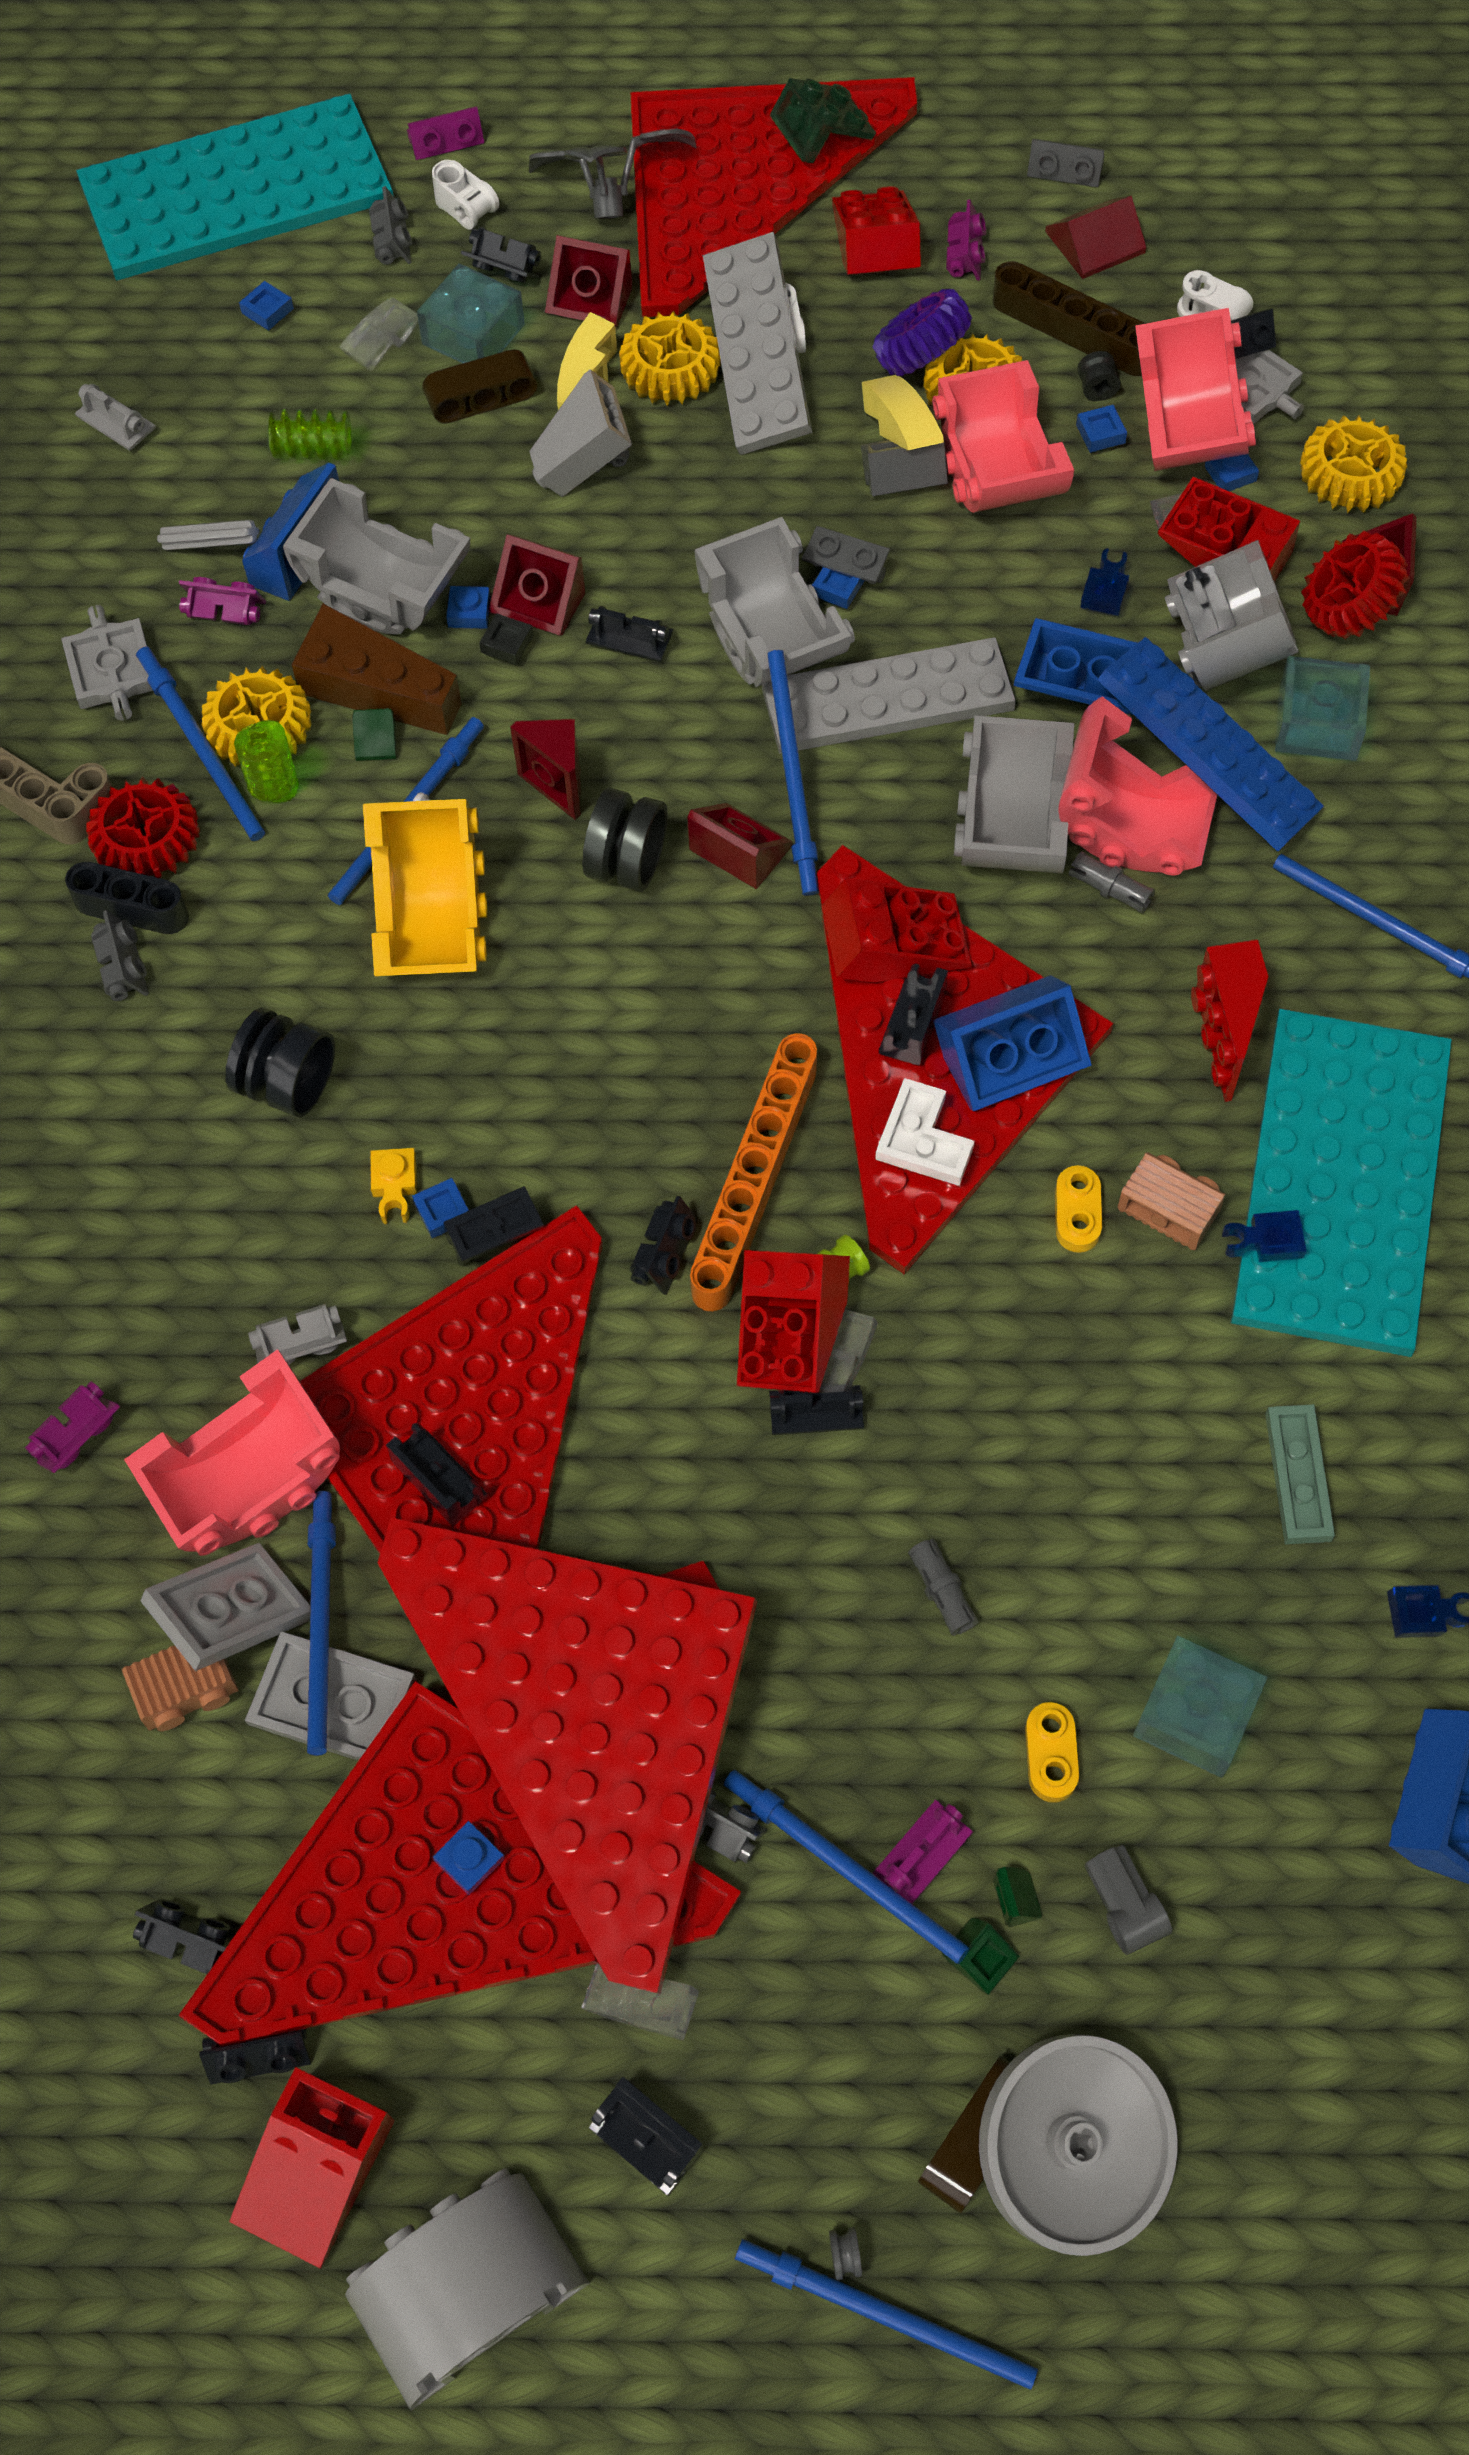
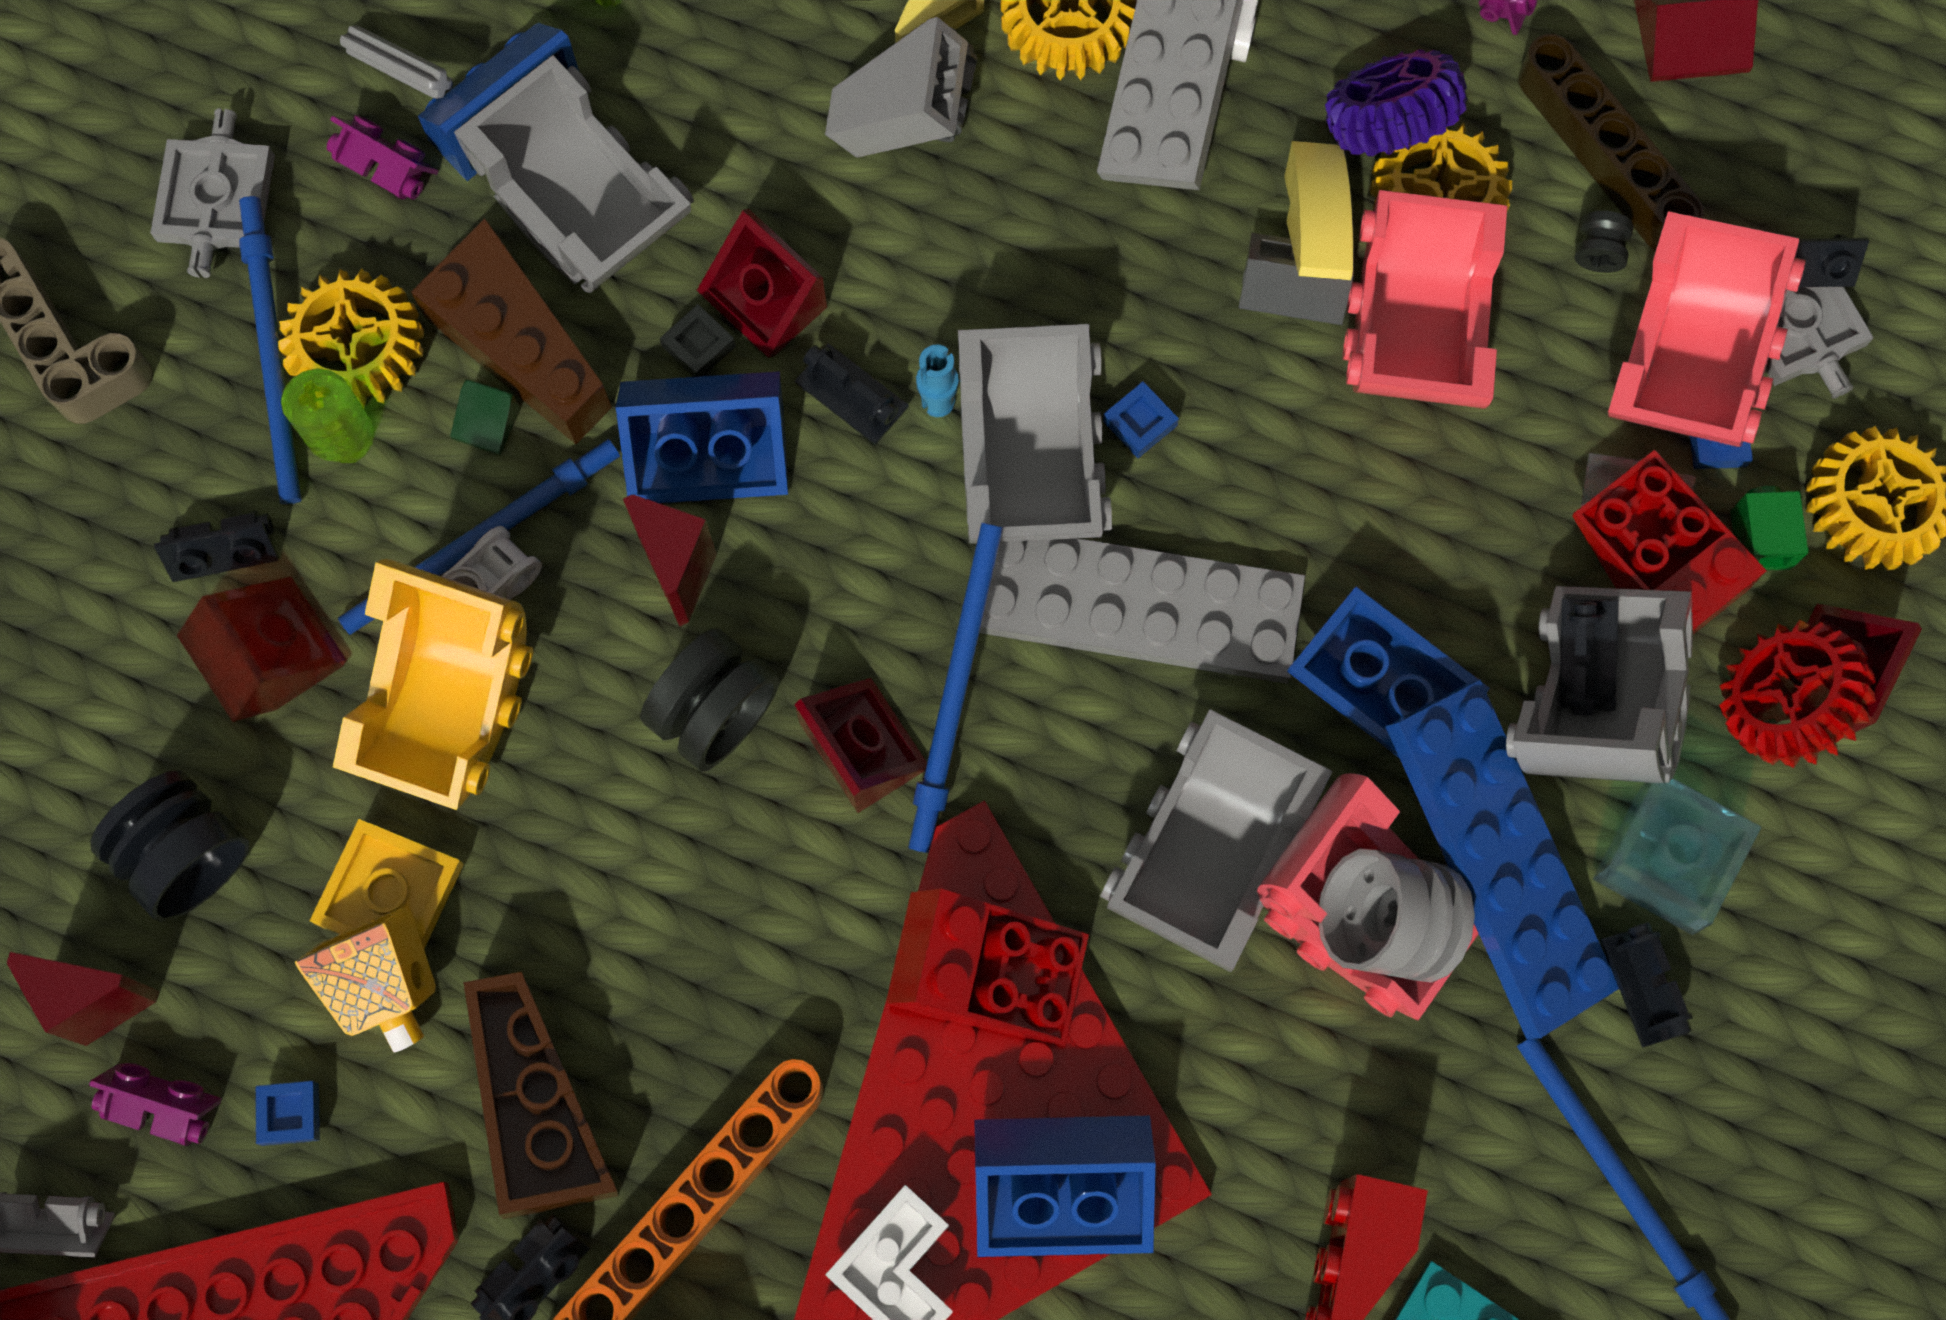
camera: 20 degrees right, 10 degrees up
(113, 885) = (79, 518): black beam -> none
(117, 942) = (65, 593): dark grey hinge -> none
(167, 820) = (134, 425): red gear -> none
(220, 880) = (201, 552): none -> black hinge
(259, 1175) = (76, 999): none -> dark red slope
(279, 928) = (259, 646): none -> clear red slope
(358, 1235) = (130, 1092): none -> magenta hinge
(392, 1178) = (251, 1040): yellow plate -> none
(447, 1047) = (383, 874): none -> yellow plate
(467, 1092) = (373, 977): none -> yellow torso
(468, 607) = (673, 275): blue plate -> none
(492, 1225) = (331, 1172): black hinge -> none
(540, 685) = (703, 437): none -> blue slope
(615, 1133) = (532, 1118): none -> reddish brown wedge
(689, 598) = (937, 380): none -> dark azure pin
(846, 555) = (1164, 388): dark grey hinge -> none
(914, 1015) = (958, 1095): black hinge -> none
(1101, 428) = (1574, 319): blue plate -> none
(1106, 586) = (1477, 556): clear blue plate -> none
(1112, 882) = (1299, 989): dark grey pin -> none
(1158, 794) = (1396, 916): none -> light grey wheel
(1213, 297) = (1804, 193): white piece -> none
(1294, 498) = (1771, 526): none -> green brick
(1354, 806) = (1639, 971): none -> black hinge

